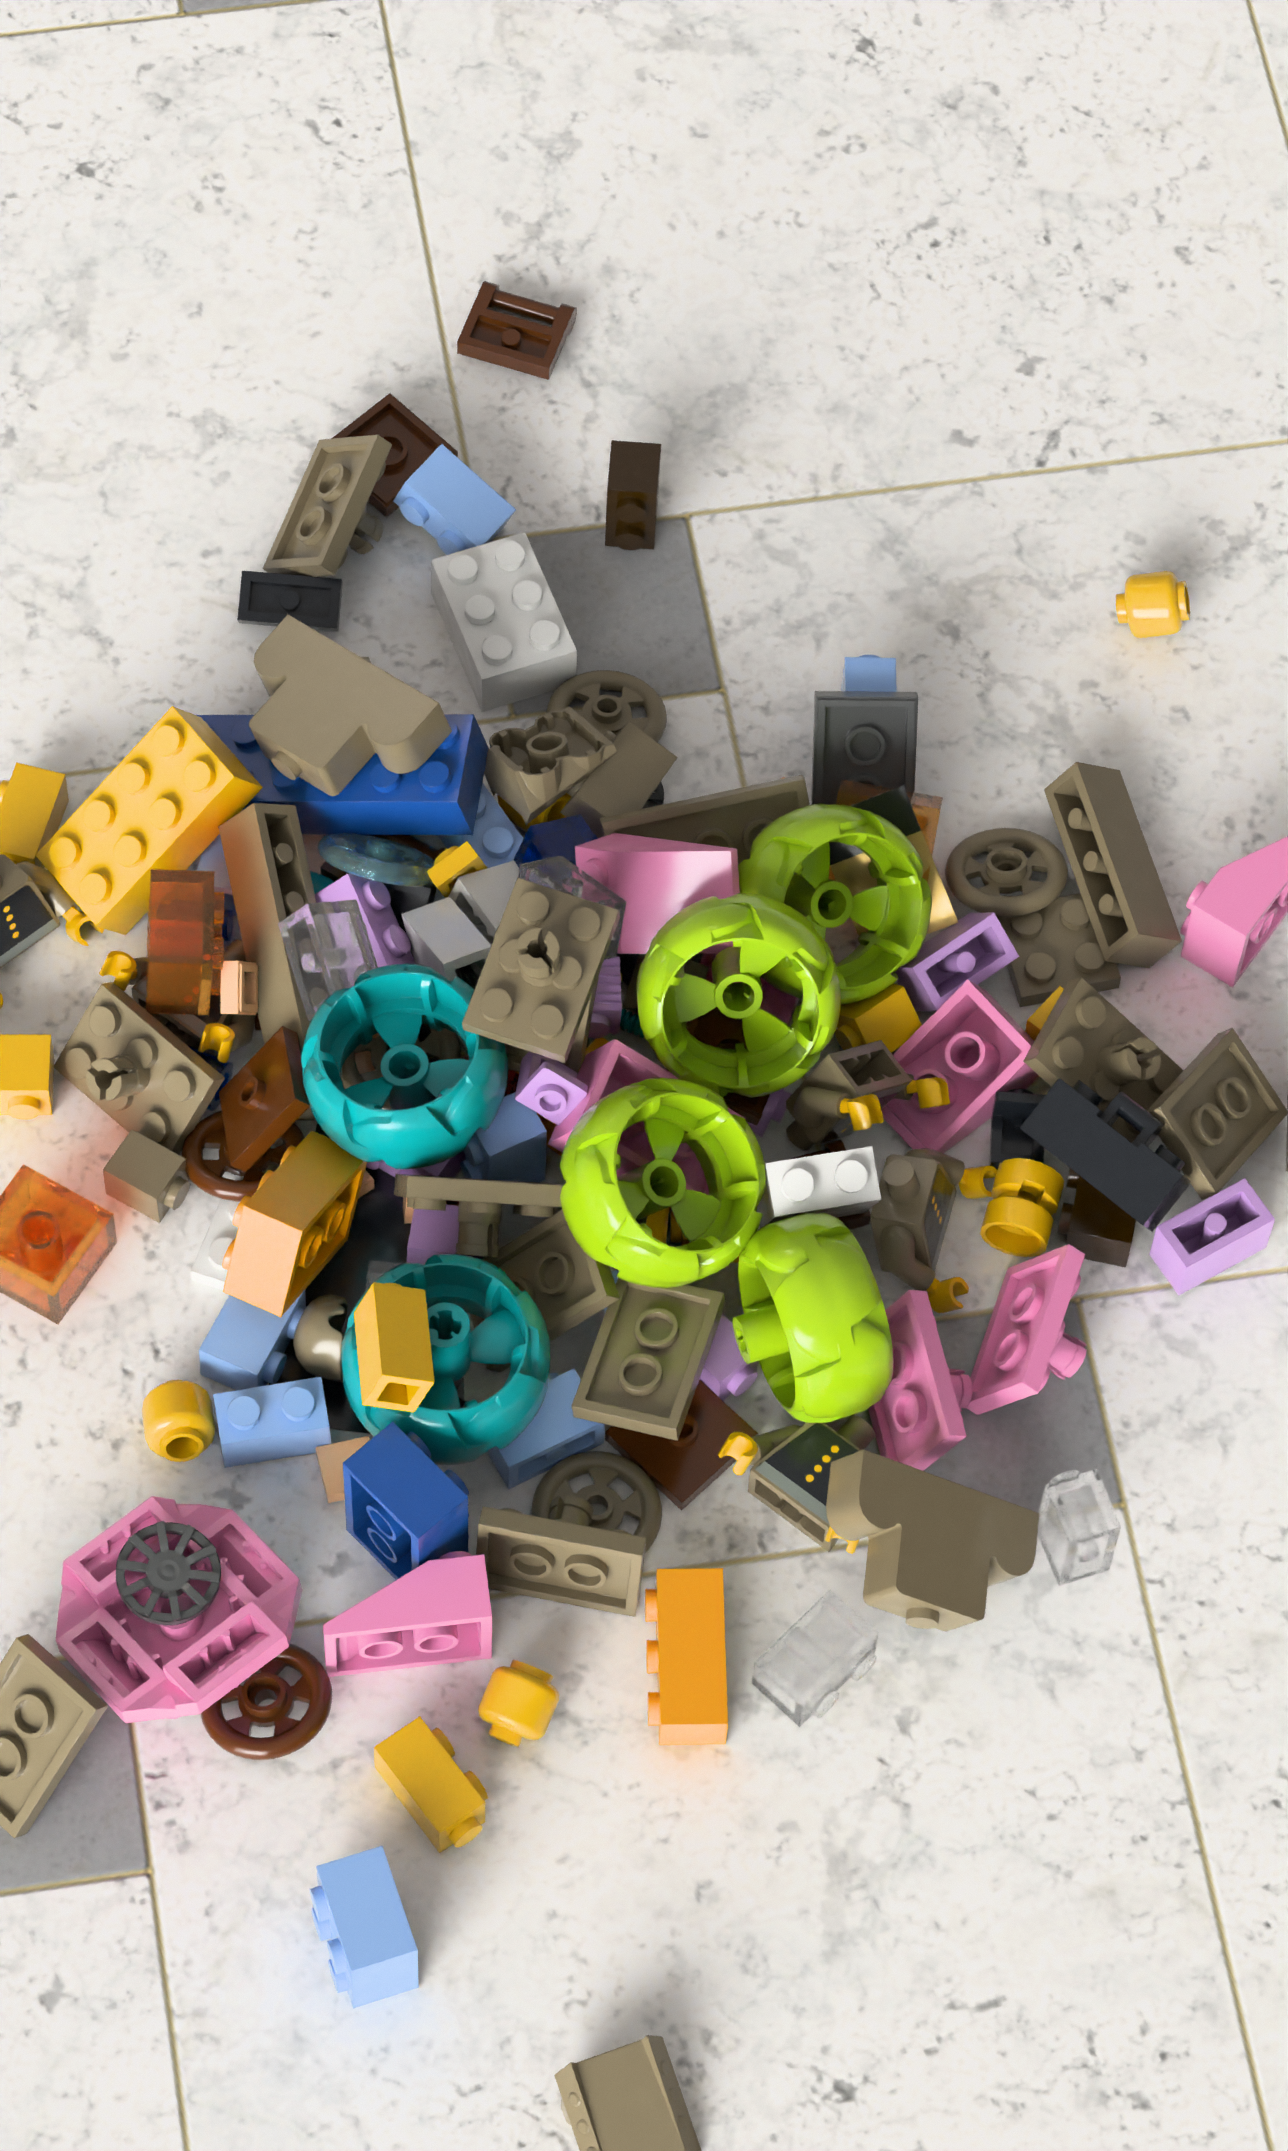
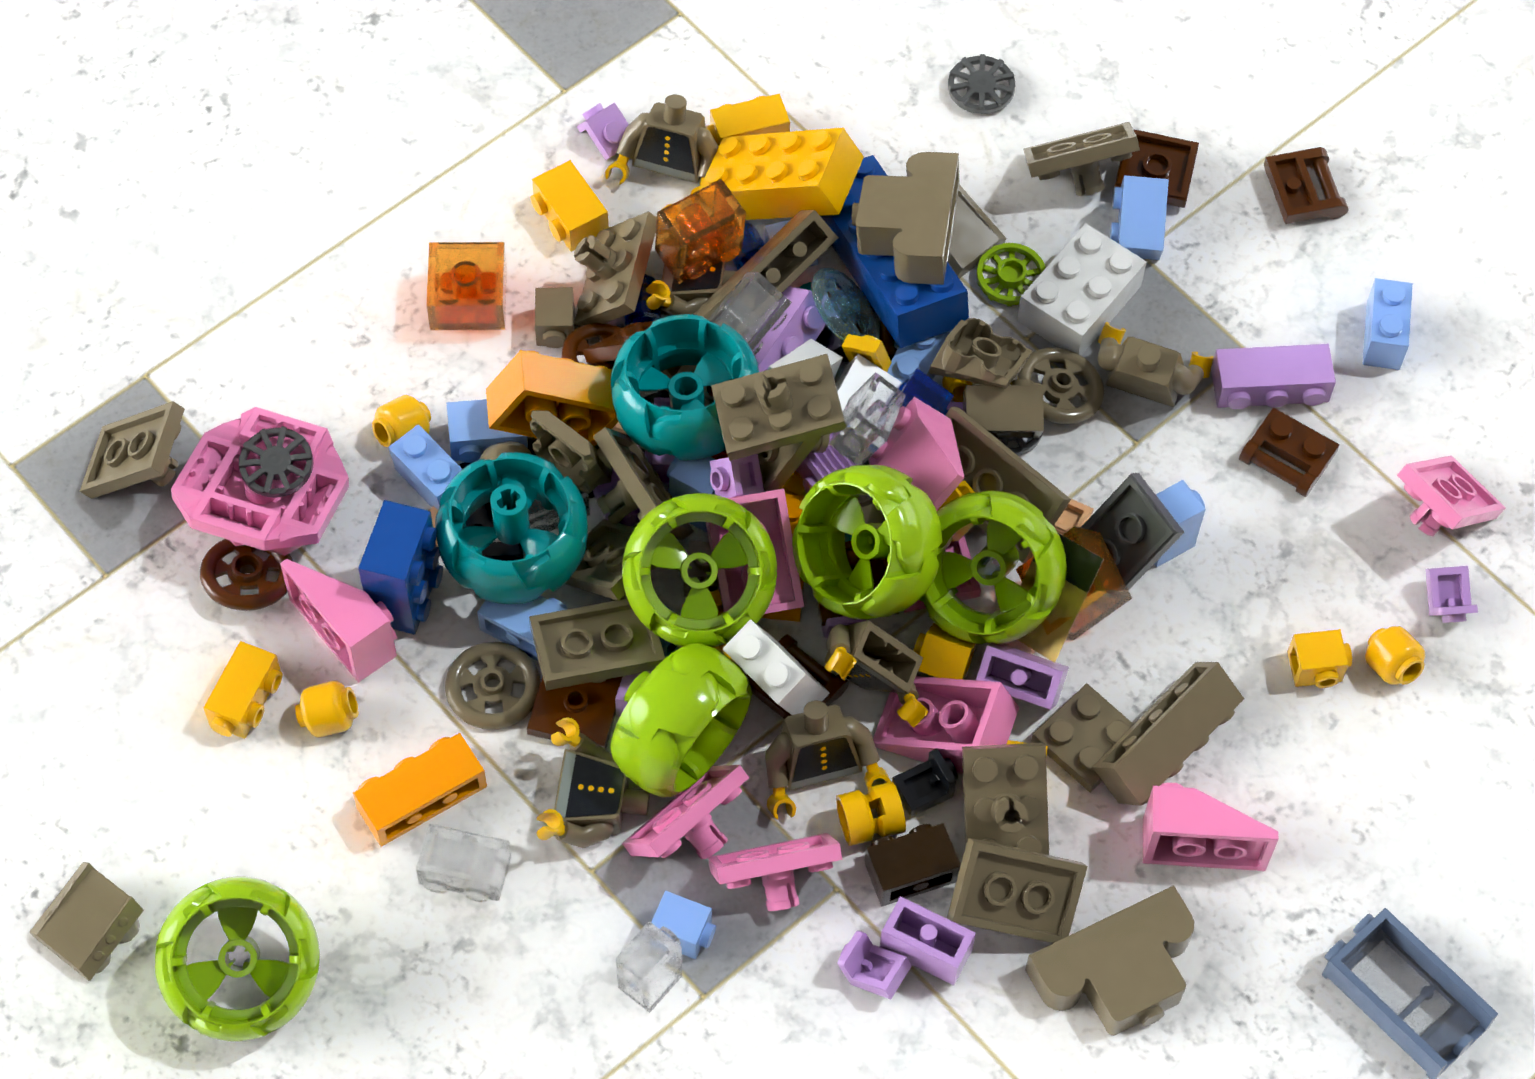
camera: 60 degrees right, 0 degrees up
(141, 557) = (981, 84): none -> dark grey wheel
(239, 988) = (699, 283): light nougat tile -> none
(271, 596) = (1008, 173): black plate -> none
(367, 1927) = (117, 701): light blue brick -> none
(375, 1244) = (568, 451): none -> dark tan slope
(393, 1347) = (472, 478): yellow brick -> none
(425, 673) = (1010, 272): none -> lime wheel
(562, 1557) = (435, 671): dark tan plate -> none
(632, 495) = (1224, 307): dark brown brick -> none
(650, 618) = (1148, 367): none -> dark tan torso
(741, 508) = (1273, 376): none -> lavender brick
(753, 362) = (1387, 324): none -> light blue brick
(759, 1952) = (189, 986): none -> lime wheel
(834, 541) = (1294, 444): none -> reddish brown plate
(929, 1539) = (572, 877): dark tan brick -> none
(1006, 872) = (1118, 674): dark tan plate -> none
(1009, 436) = (1448, 495): none -> bright pink plate
(1030, 1465) = (687, 920): none -> light blue brick
(1111, 676) = (1319, 658): none -> yellow brick
(1114, 511) = (1449, 593): none -> lavender bracket
(1125, 1172) = (928, 833): black piece -> none
(1204, 1309) = (872, 966): none -> lavender bracket

